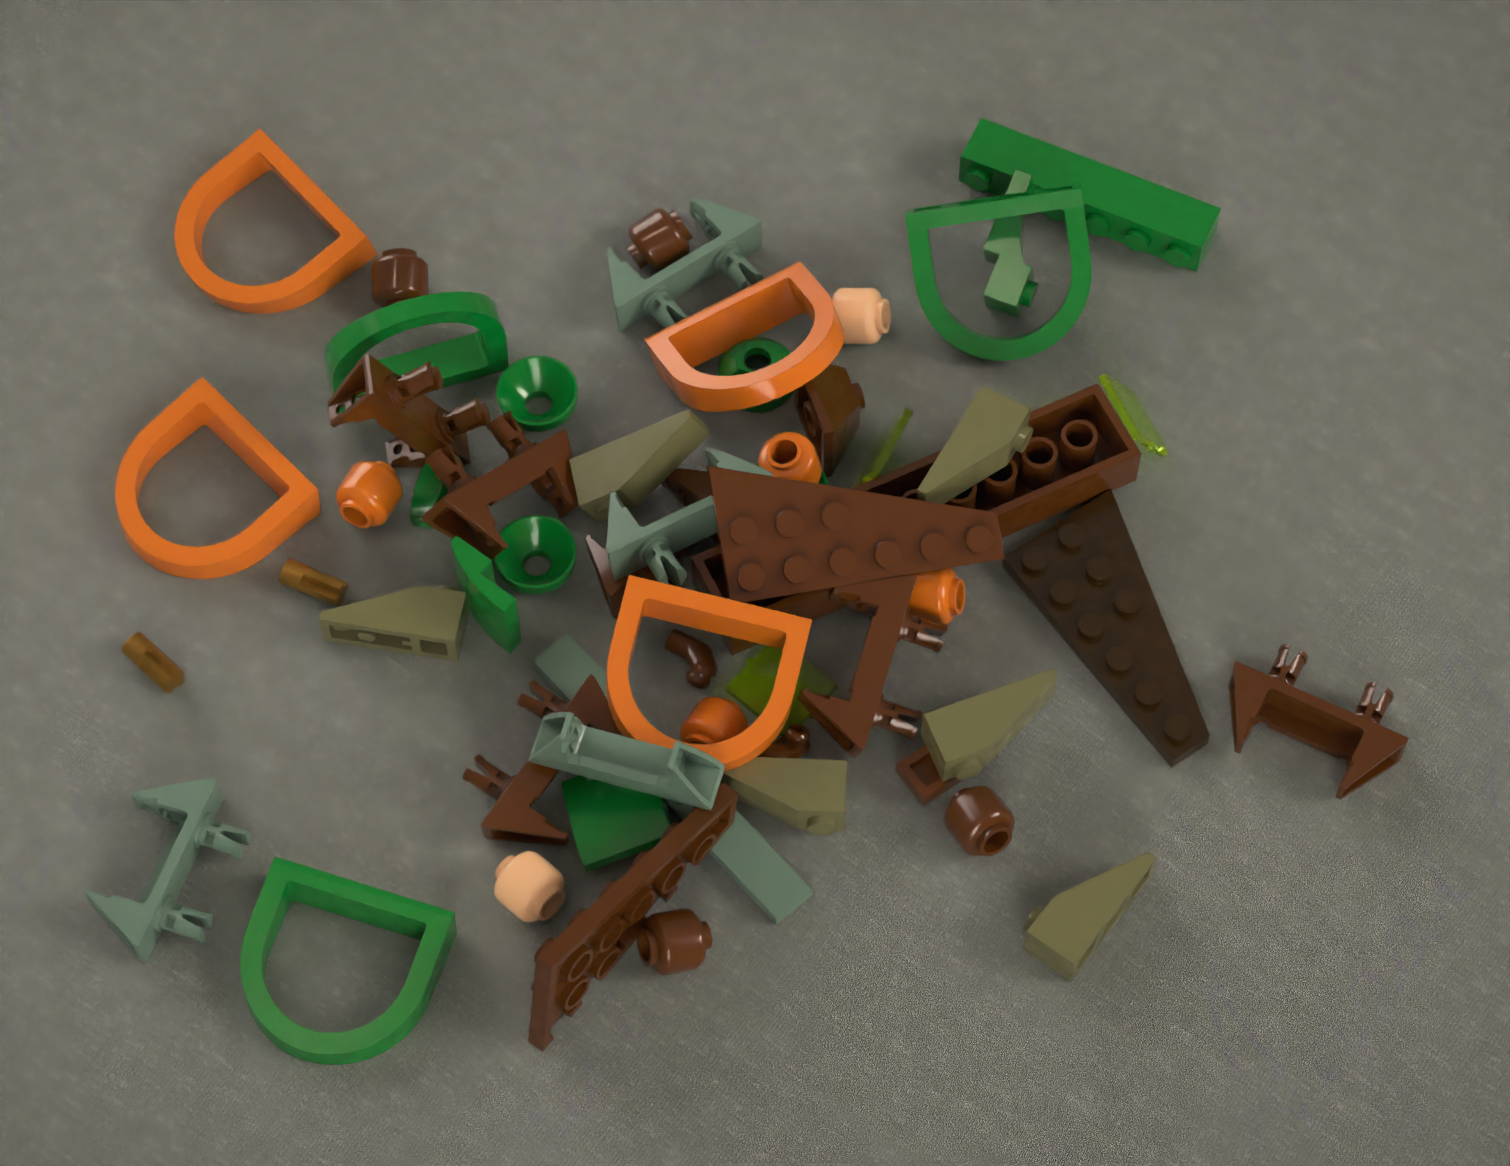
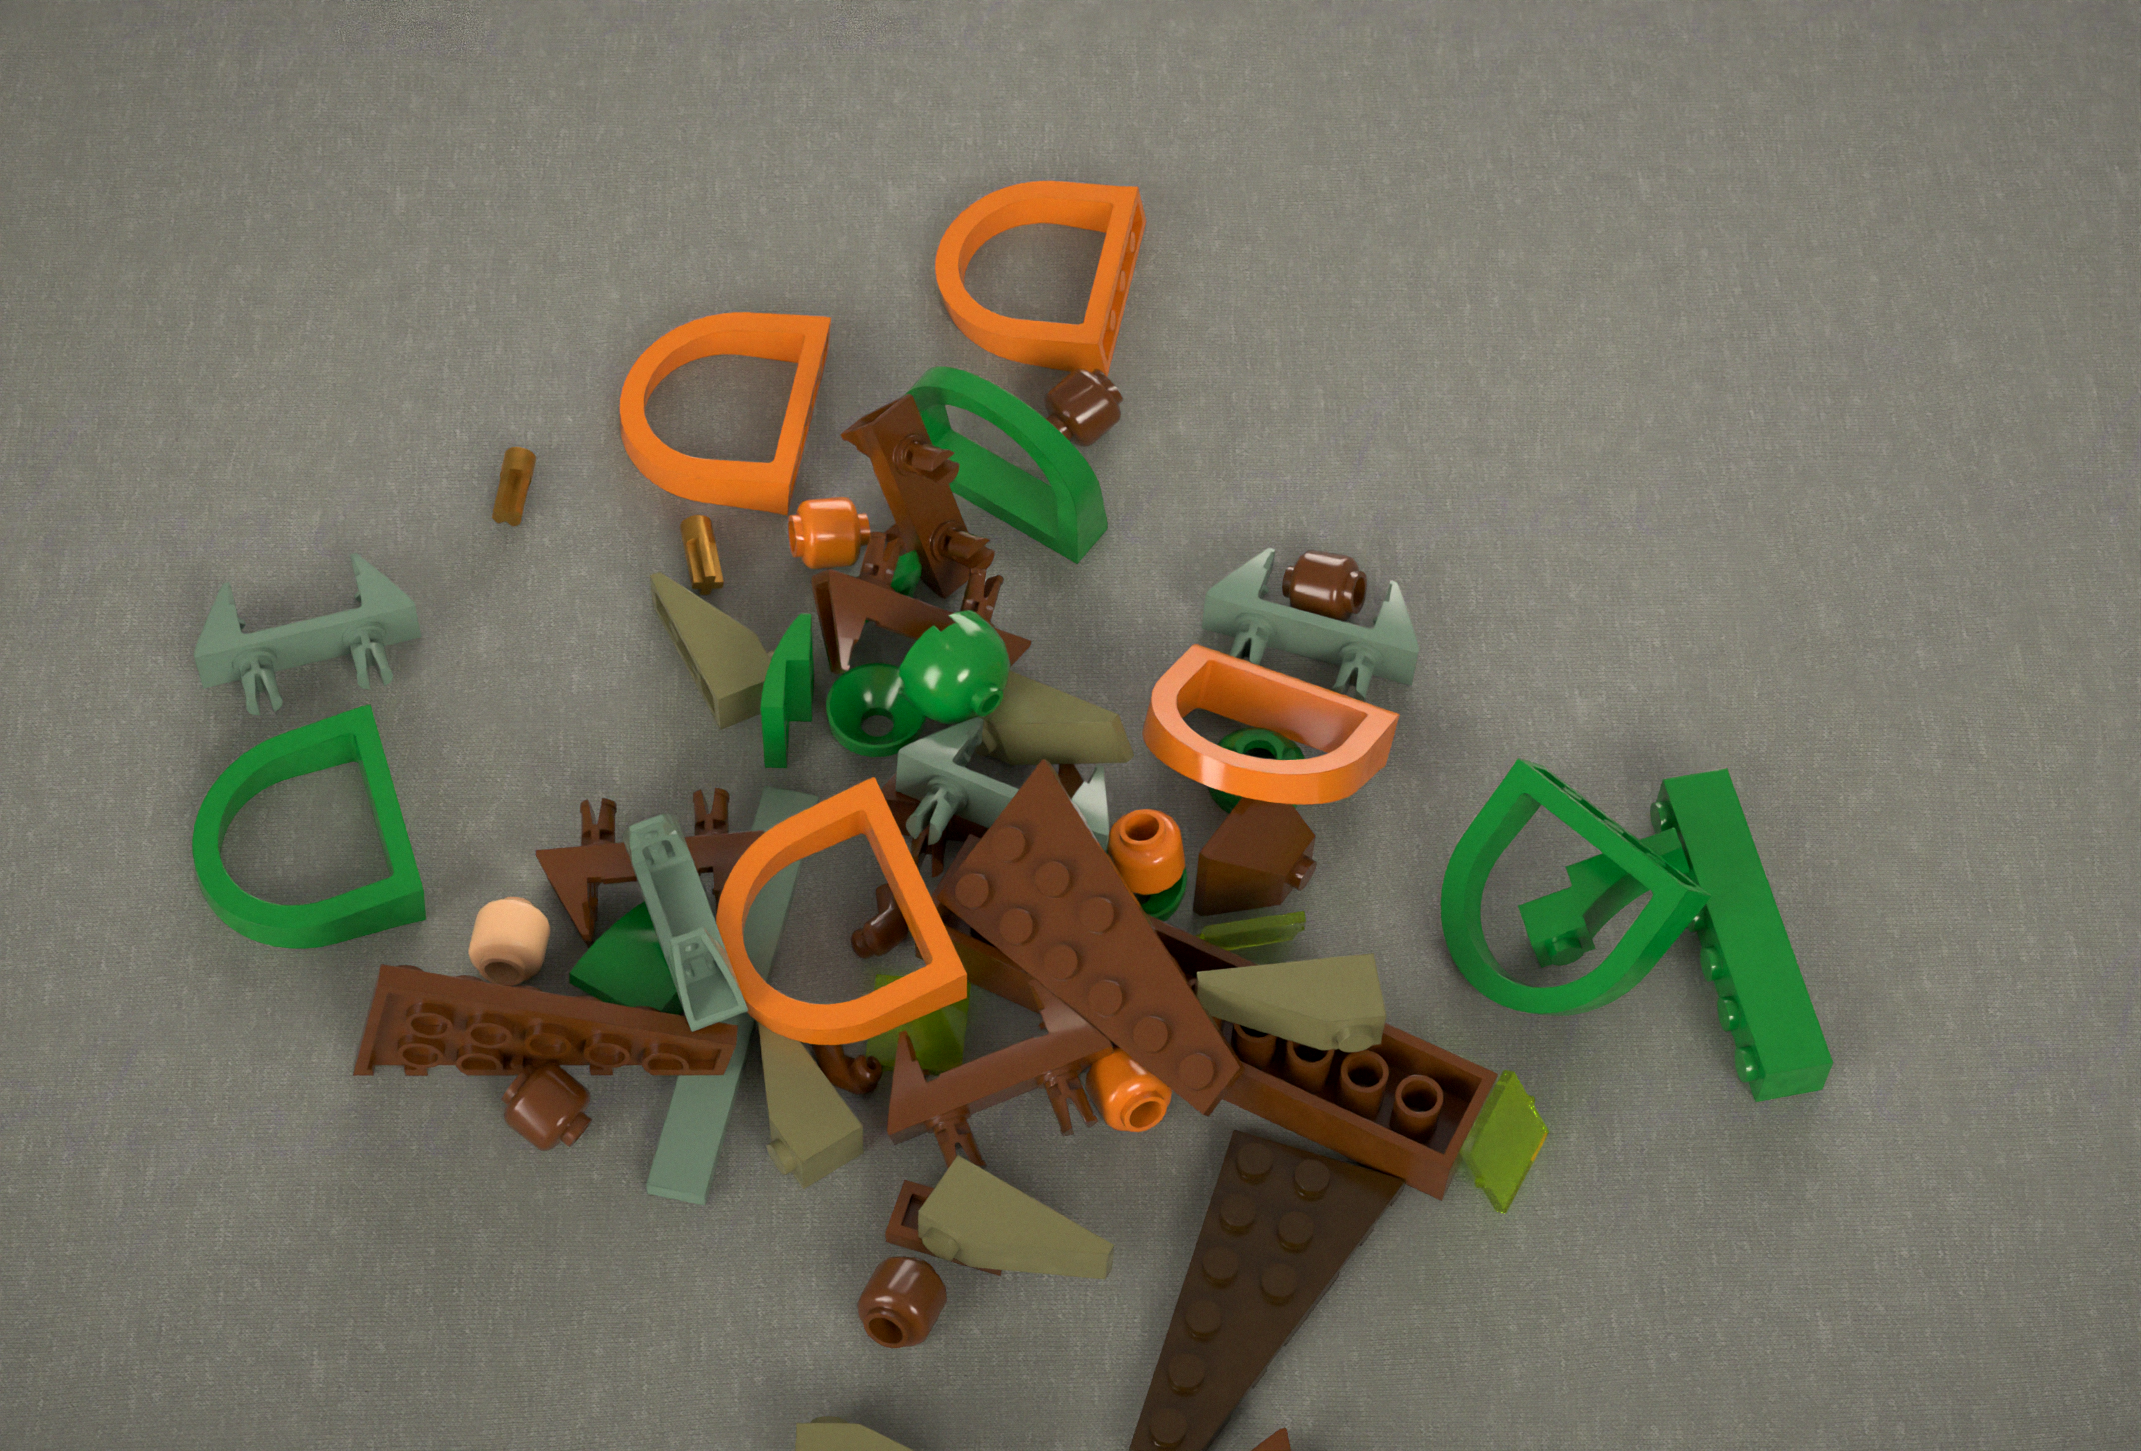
camera: 50 degrees right, 5 degrees down
(538, 378) = (1056, 579): green piece -> none
(573, 481) = (956, 671): none -> green cylinder
(713, 721) = (813, 979): orange head -> none
(862, 314) = (1397, 813): light nougat head -> none

